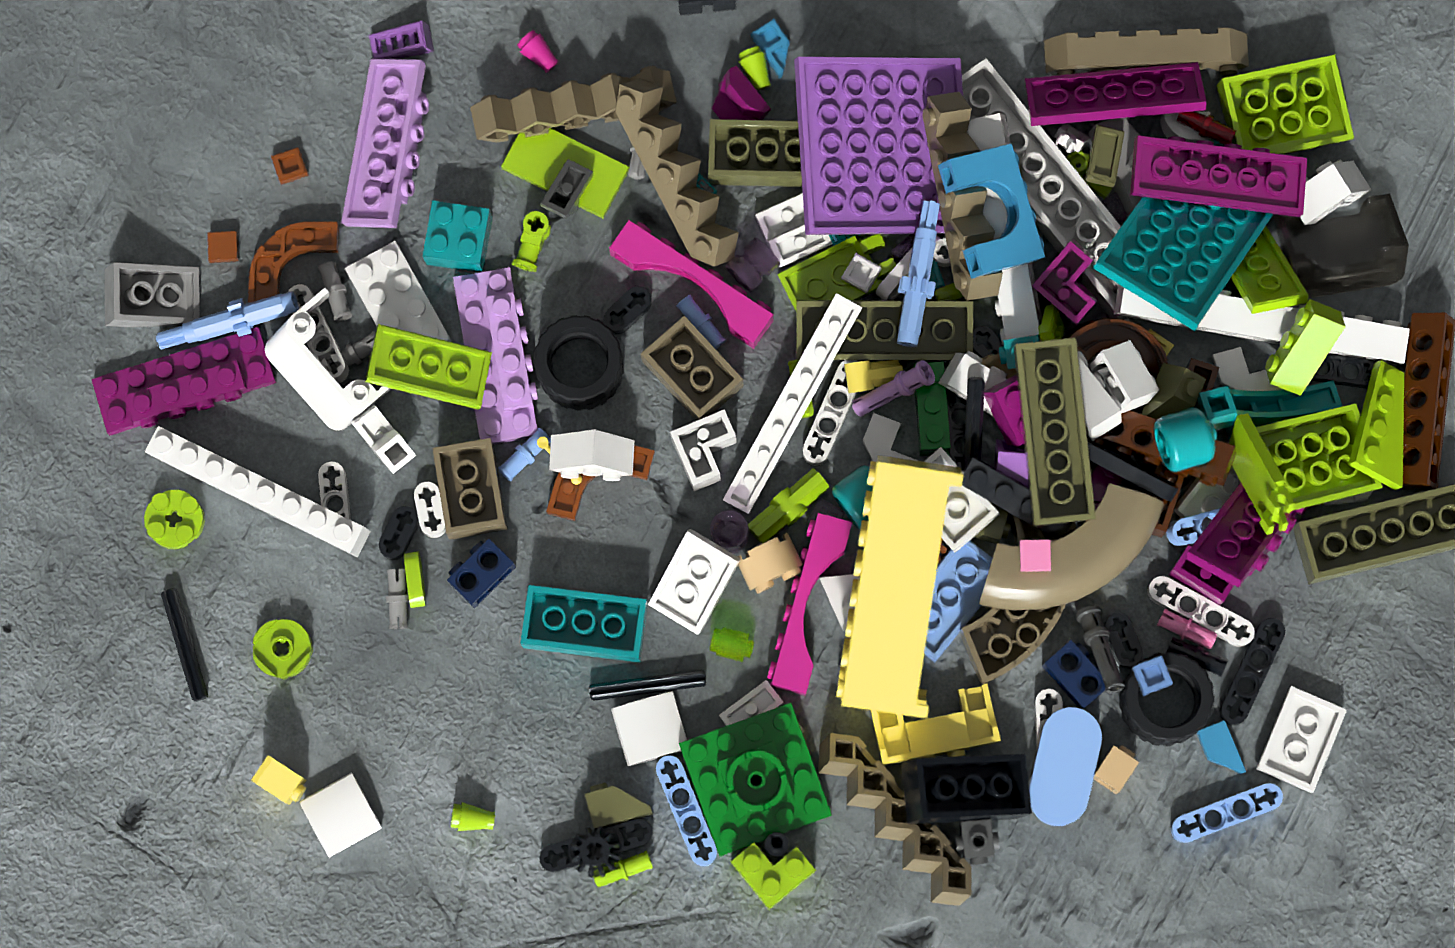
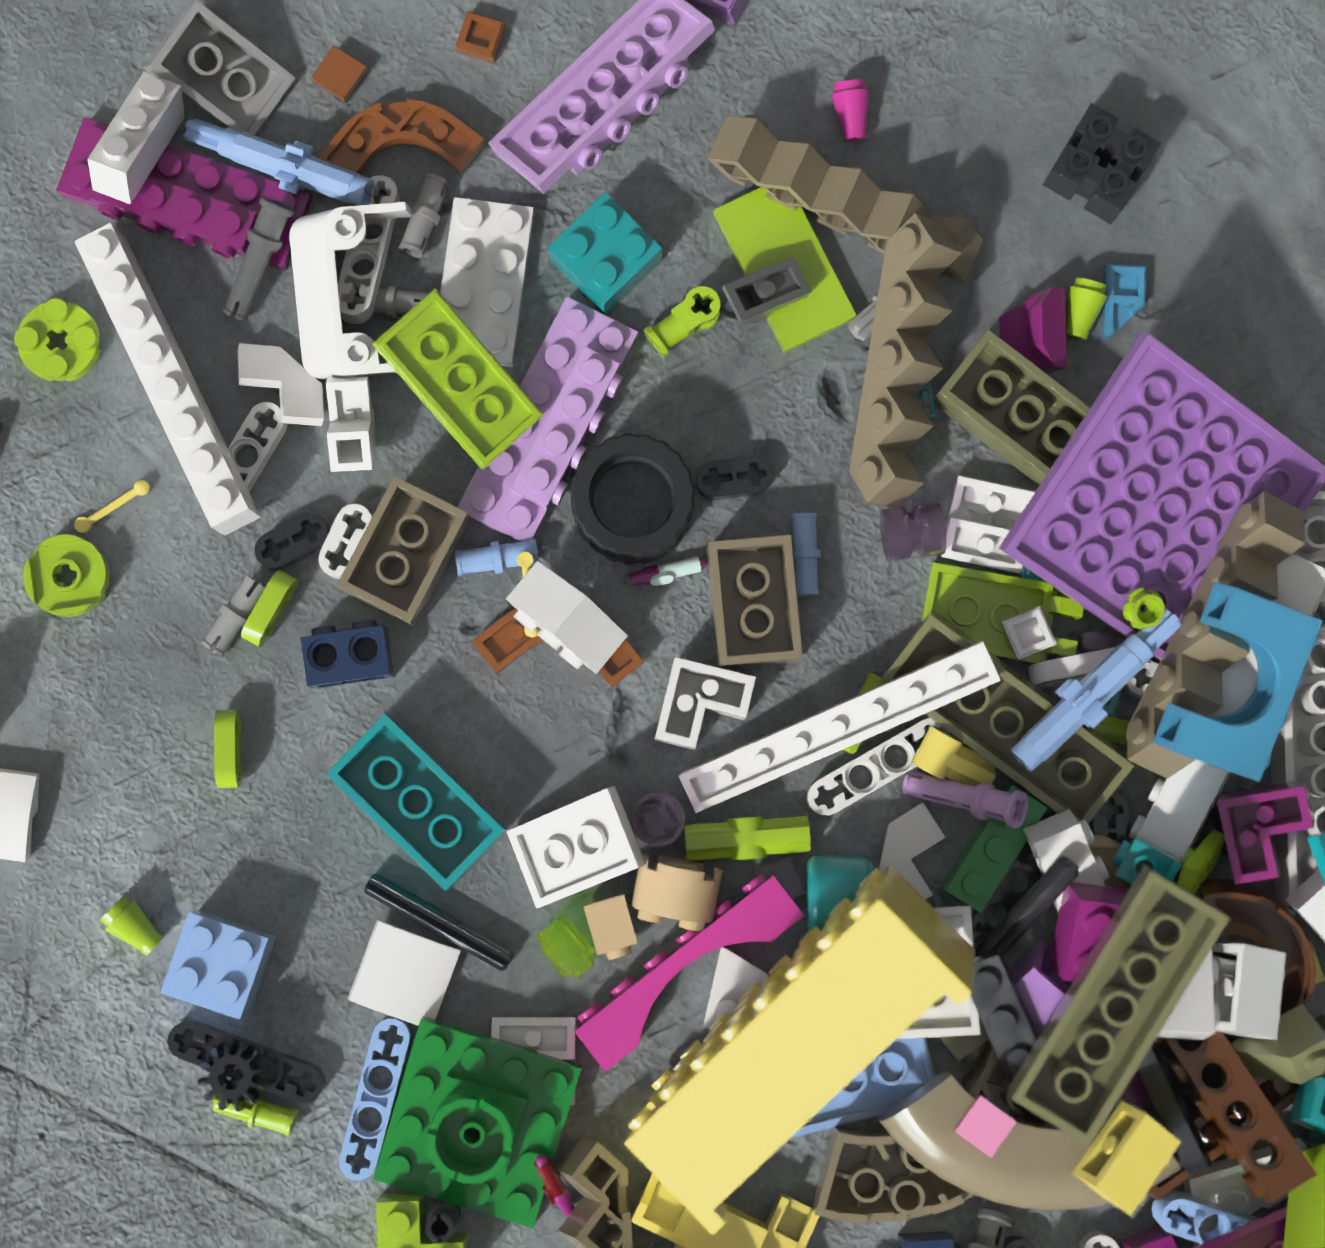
camera: 25 degrees right, 5 degrees up
(136, 366) = (136, 137): none -> white brick
(254, 371) = (263, 240): none -> dark grey pin
(268, 613) = (84, 524): none -> light yellow hinge
(336, 443) = (274, 368): none -> white tile
(451, 676) = (228, 748): none -> lime beam
(538, 800) = (218, 964): none -> light blue brick
(613, 806) = (297, 1034): olive slope -> none
(629, 392) = (666, 572): none -> light aqua piece
(643, 251) = (800, 424): dark pink arch -> none
(748, 611) = (611, 926): none -> tan brick
(825, 781) = (554, 1187): none -> dark red piece
(918, 209) = (1153, 610): none -> lime plate
(1122, 512) = (1126, 1157): none -> light yellow brick
(1185, 439) = (1264, 1126): teal head -> none

